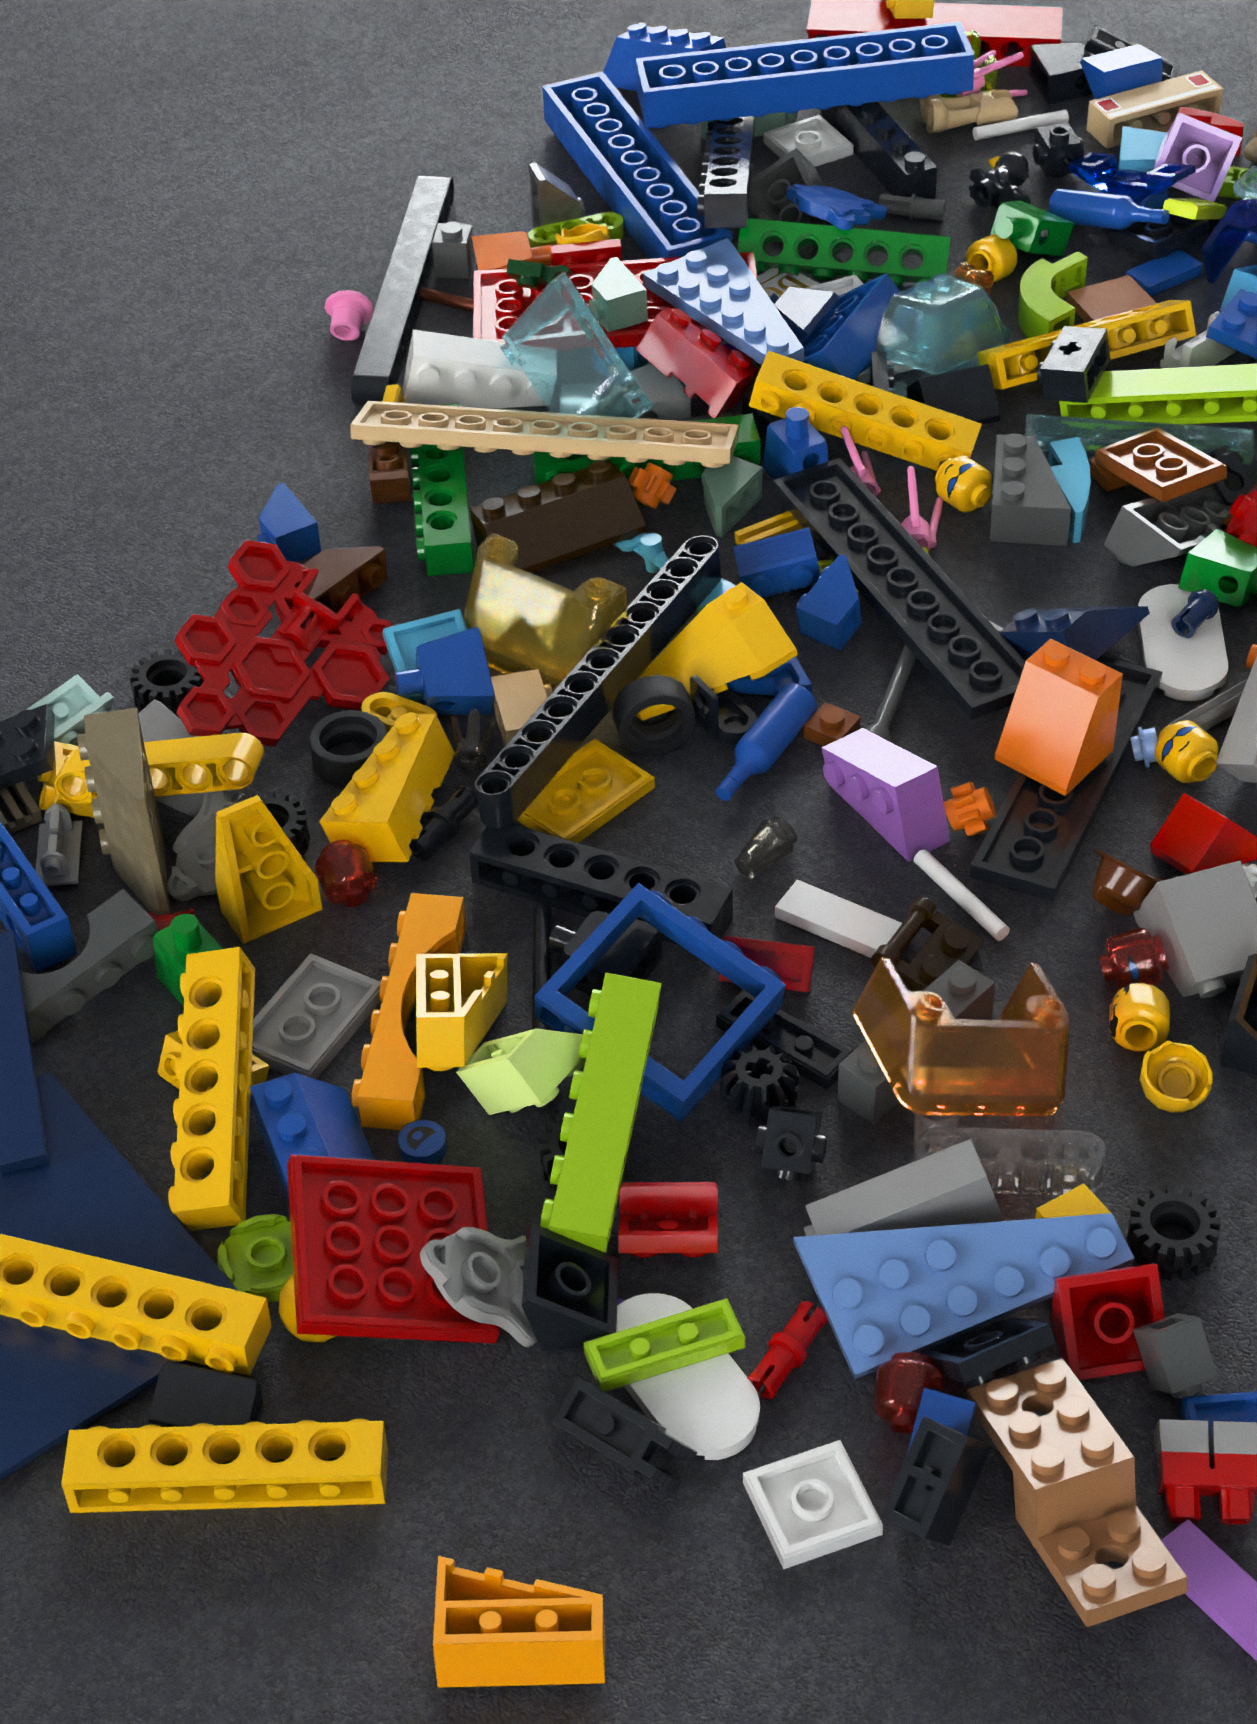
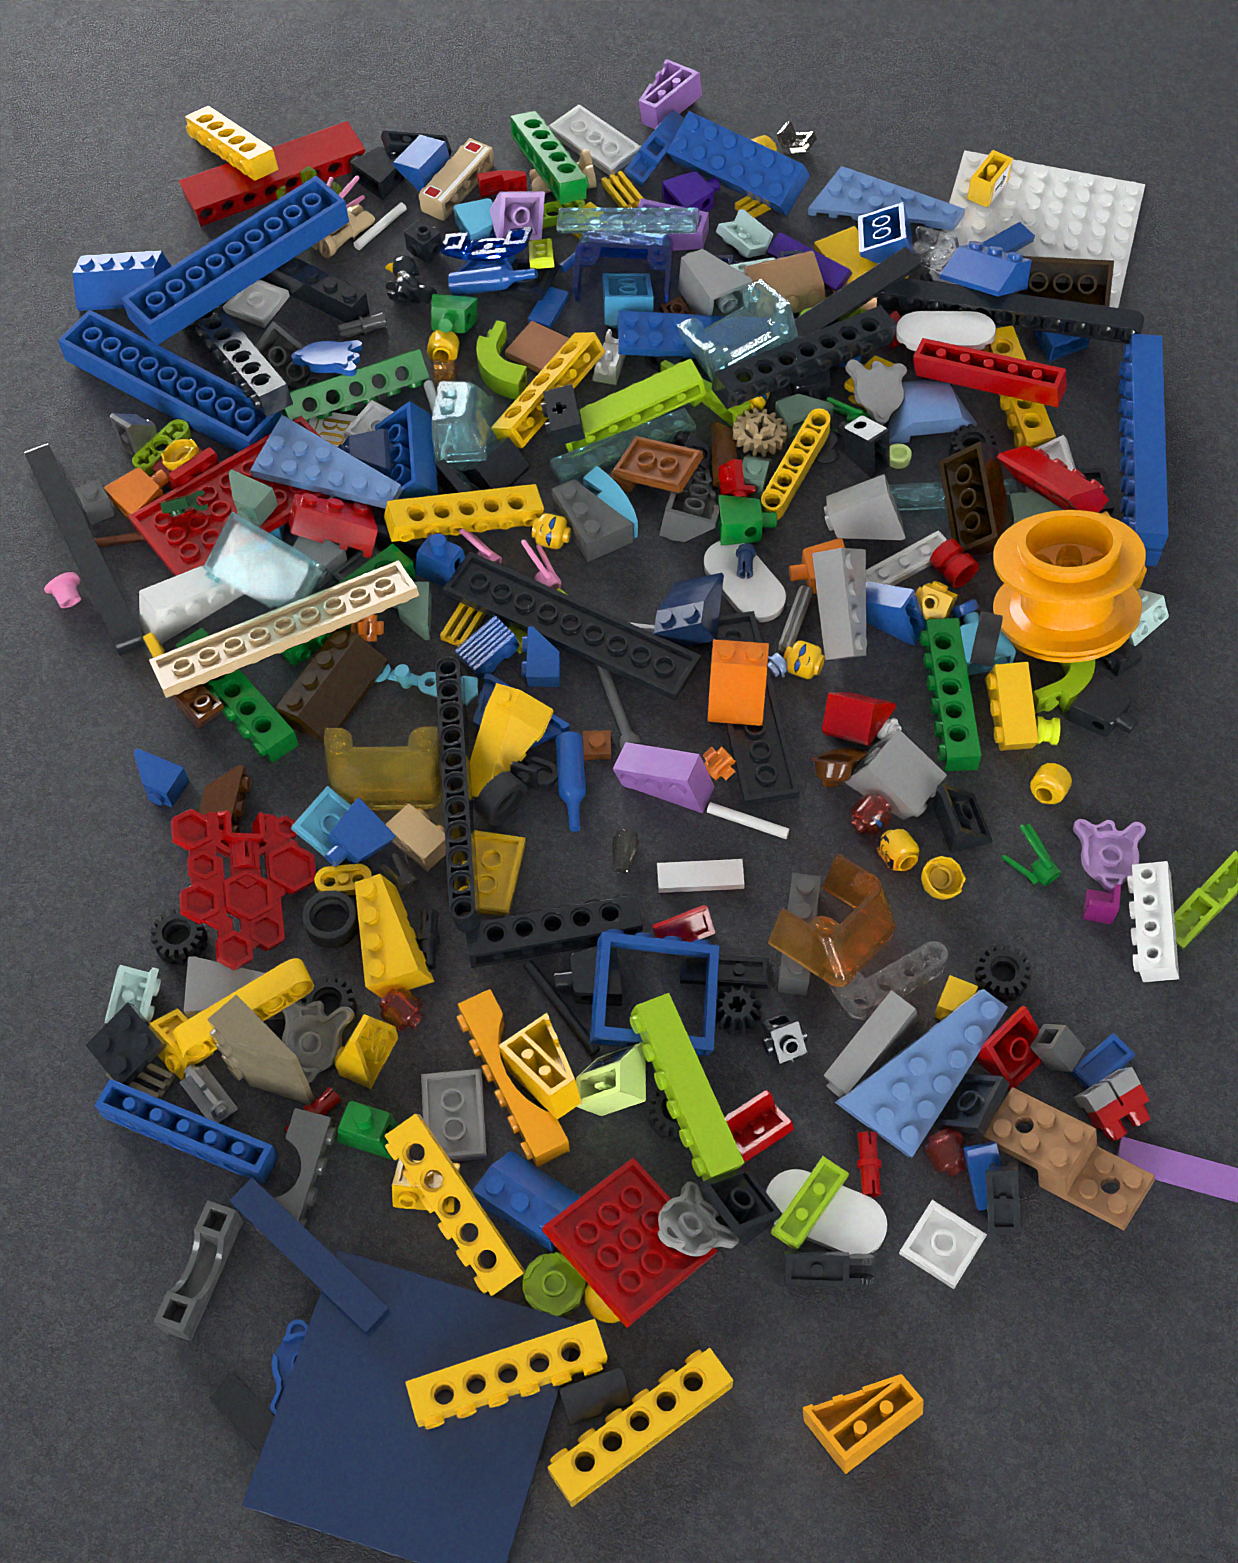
camera: 35 degrees left, 15 degrees up
(422, 1142) = (582, 1158): blue tile -> none
(943, 949) = (770, 871): dark brown plate -> none

